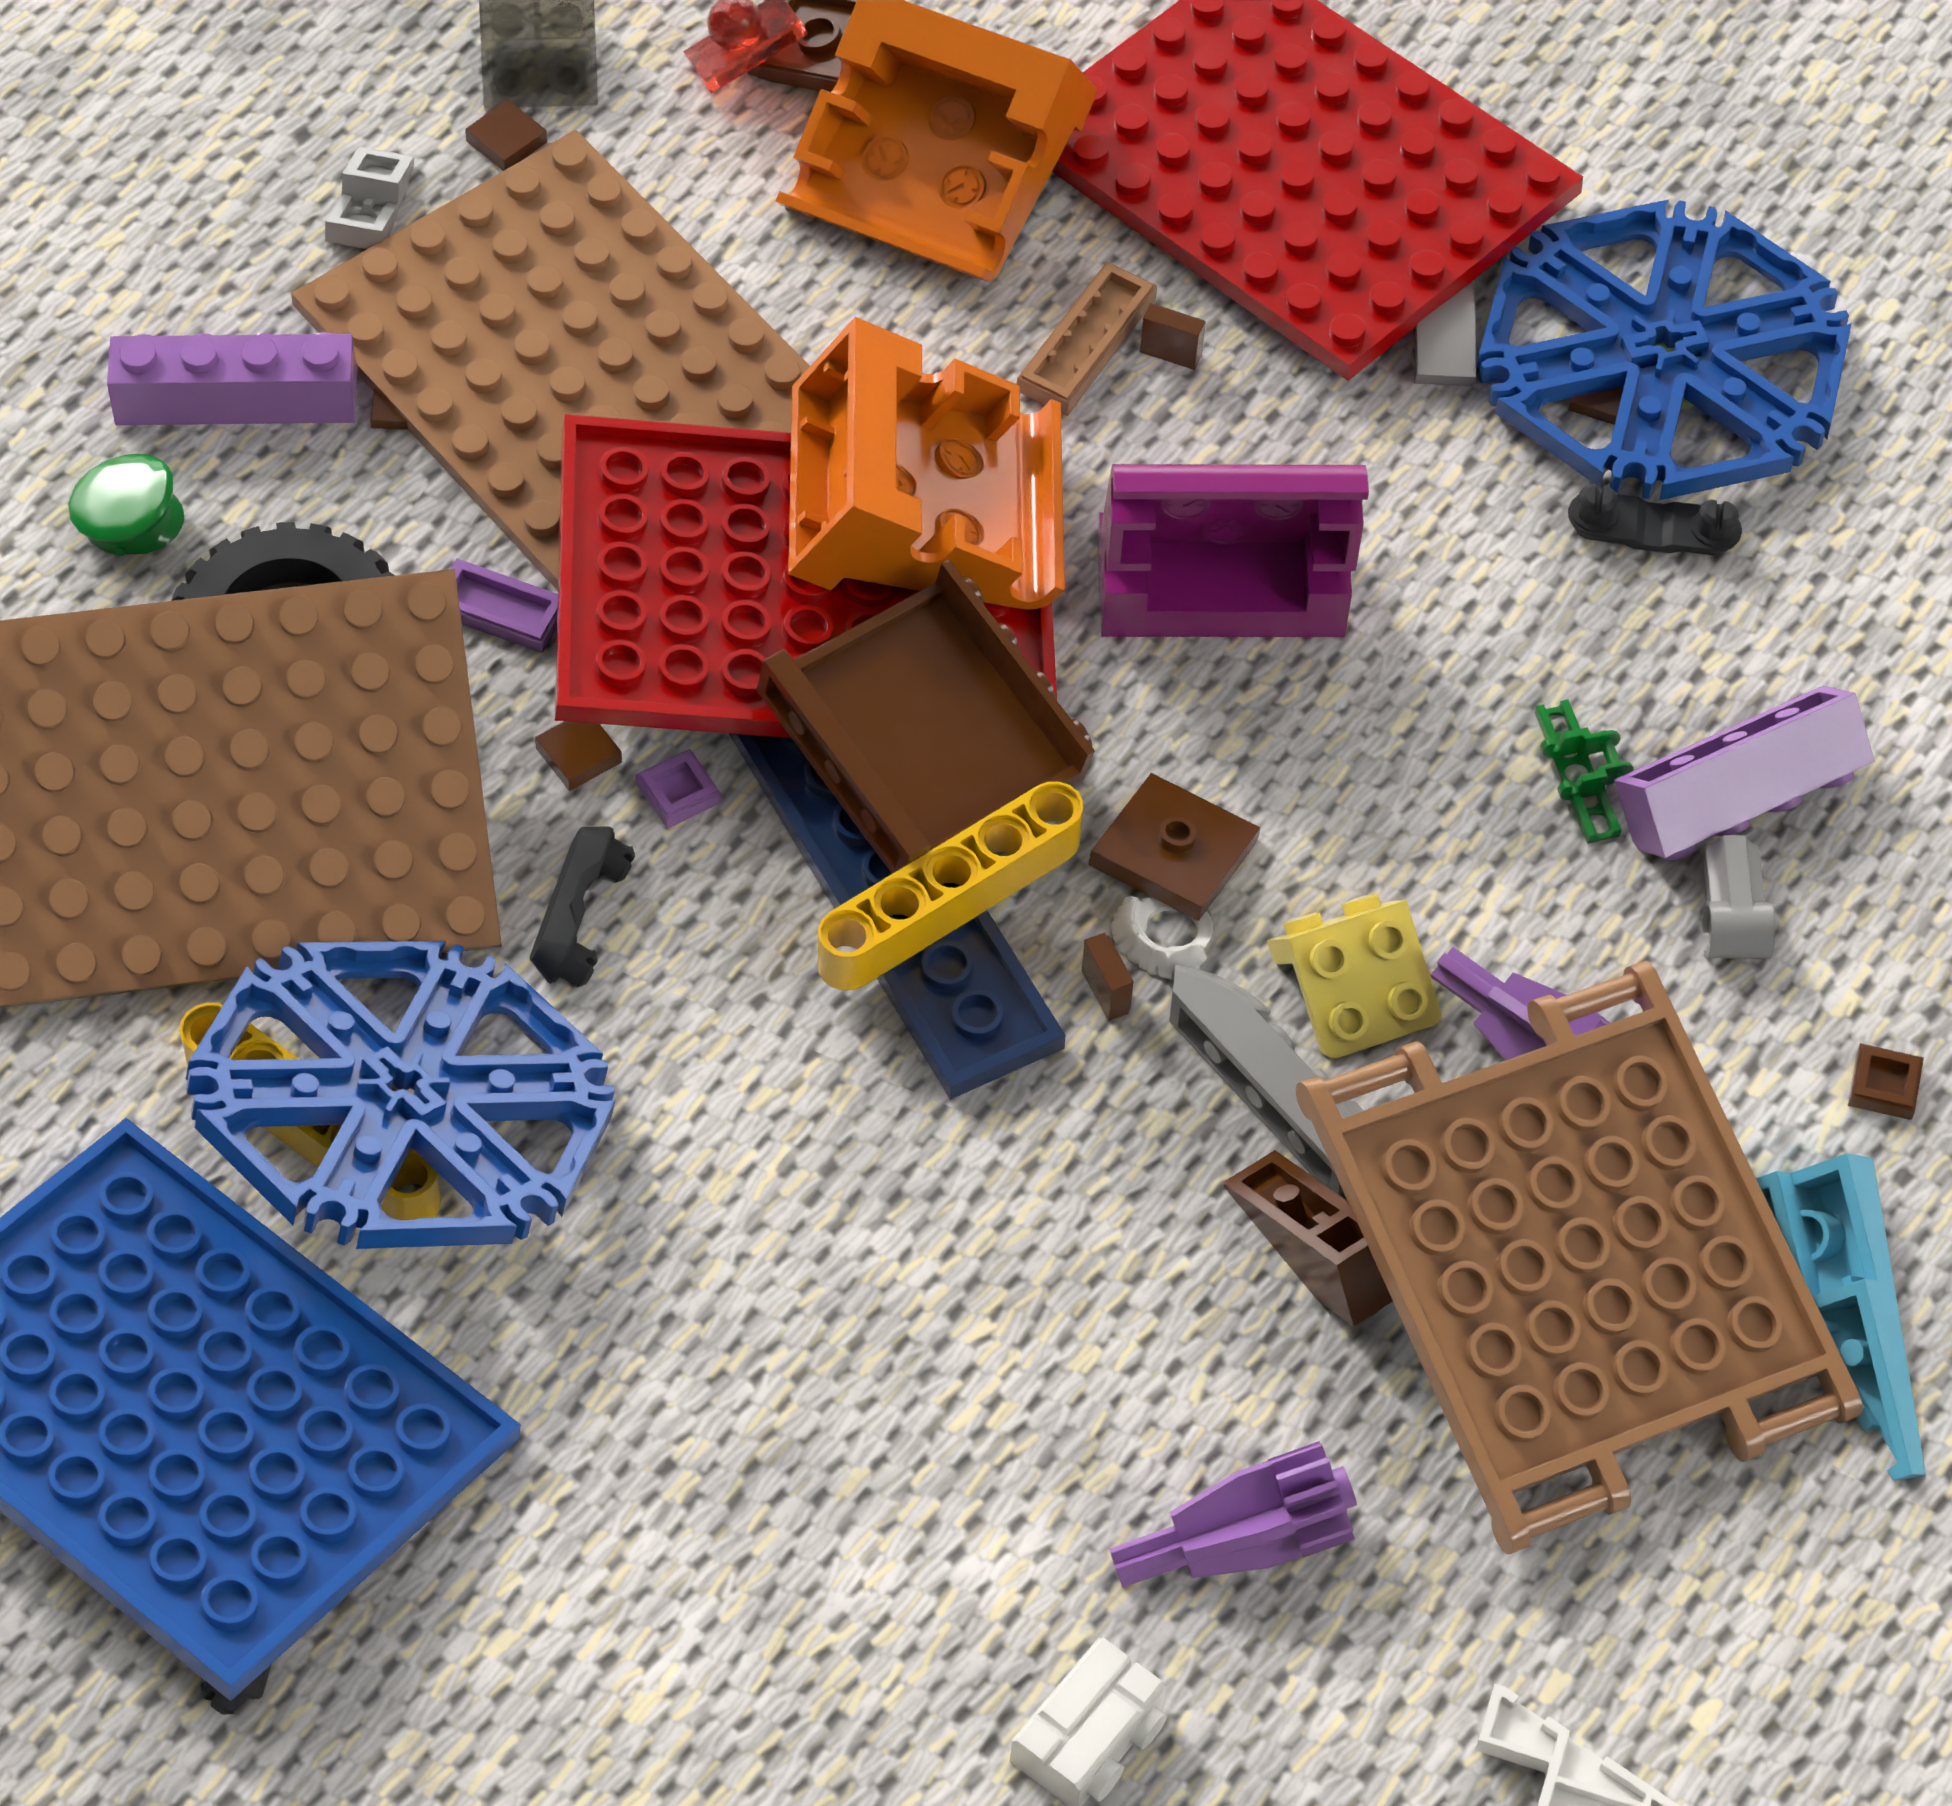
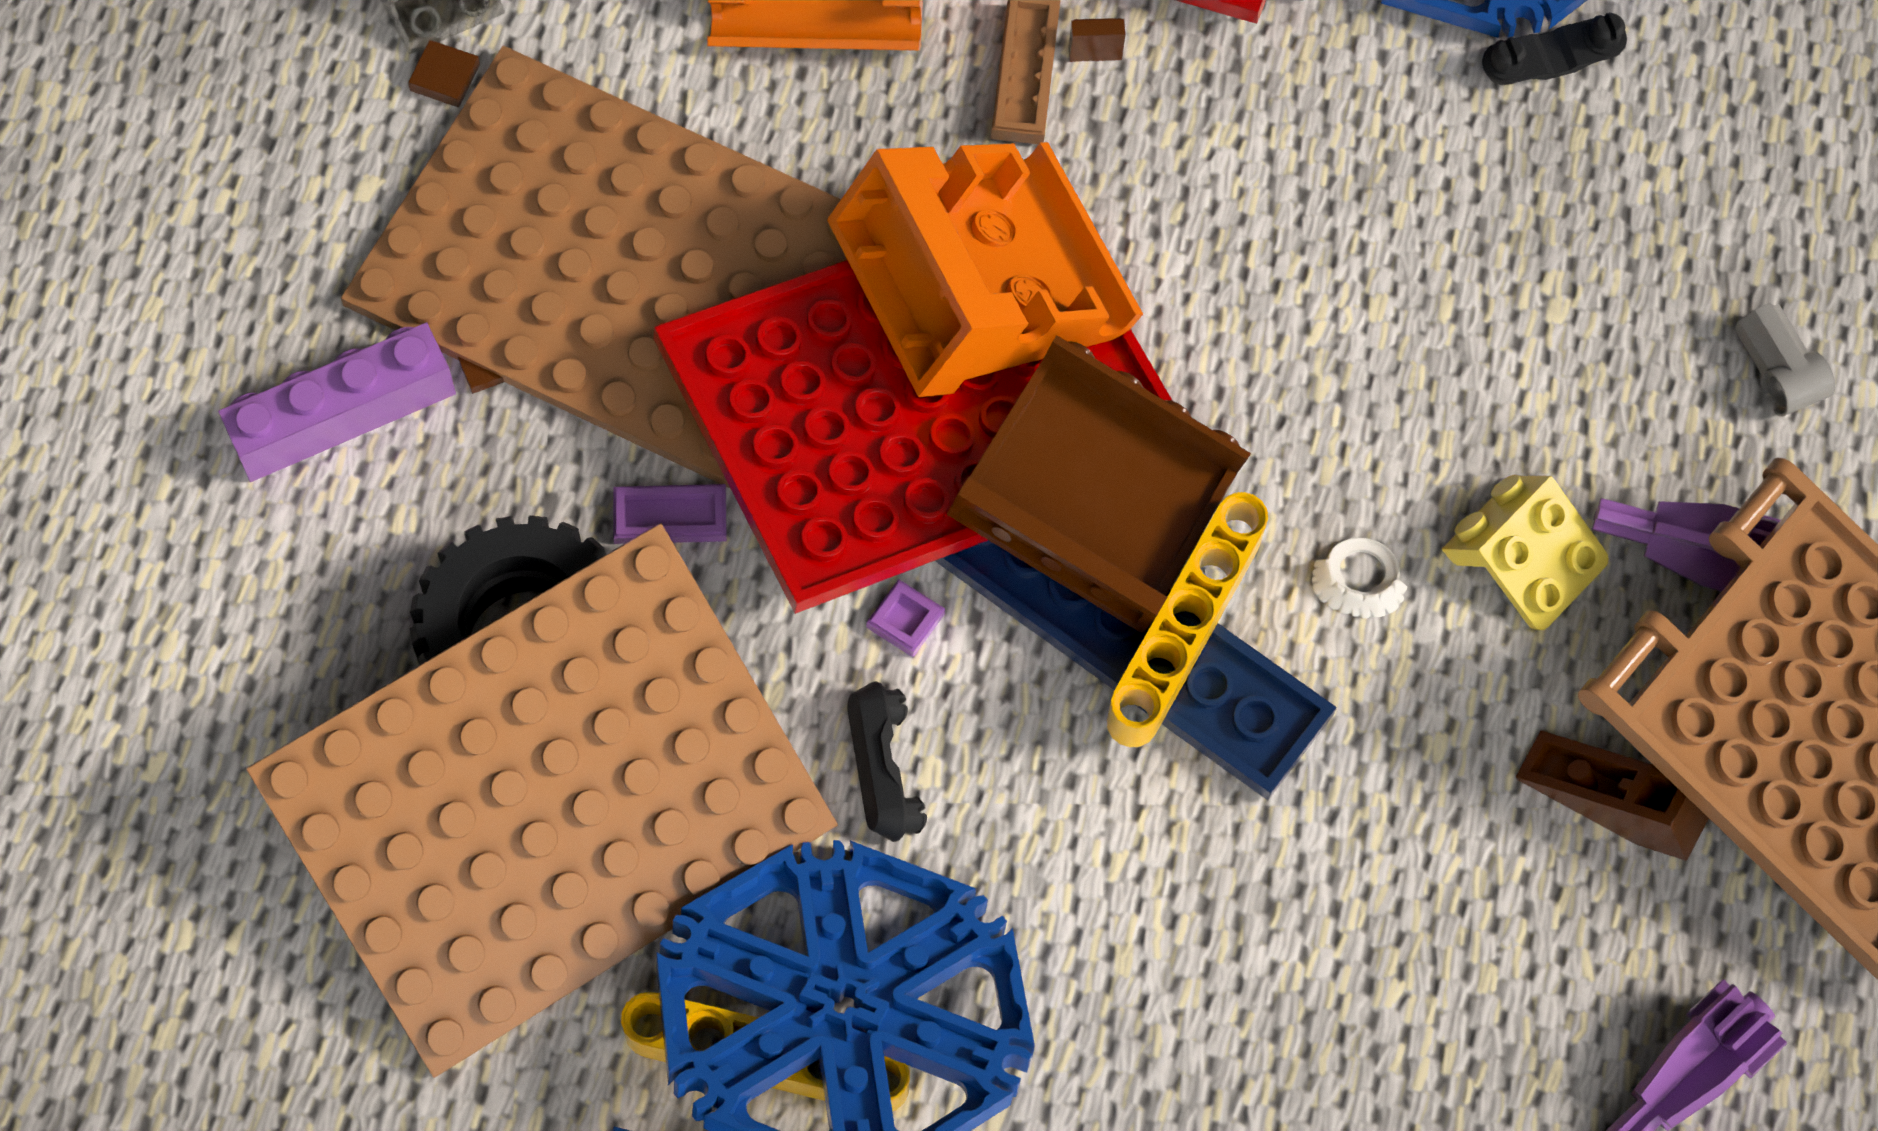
camera: 25 degrees left, 10 degrees up
(127, 505) = (305, 556): piece -> none
(369, 198) = (358, 180): light grey slope -> none
(578, 752) = (808, 628): reddish brown tile -> none
(1107, 976) = (1341, 639): reddish brown tile -> none
(1174, 846) = (1330, 498): reddish brown plate -> none
(1229, 549) = (1261, 227): magenta panel -> none
(1253, 1060) = (1502, 667): light grey brick -> none
(1593, 783) = (1619, 303): green piece -> none
(1745, 772) = (1739, 245): brick -> none

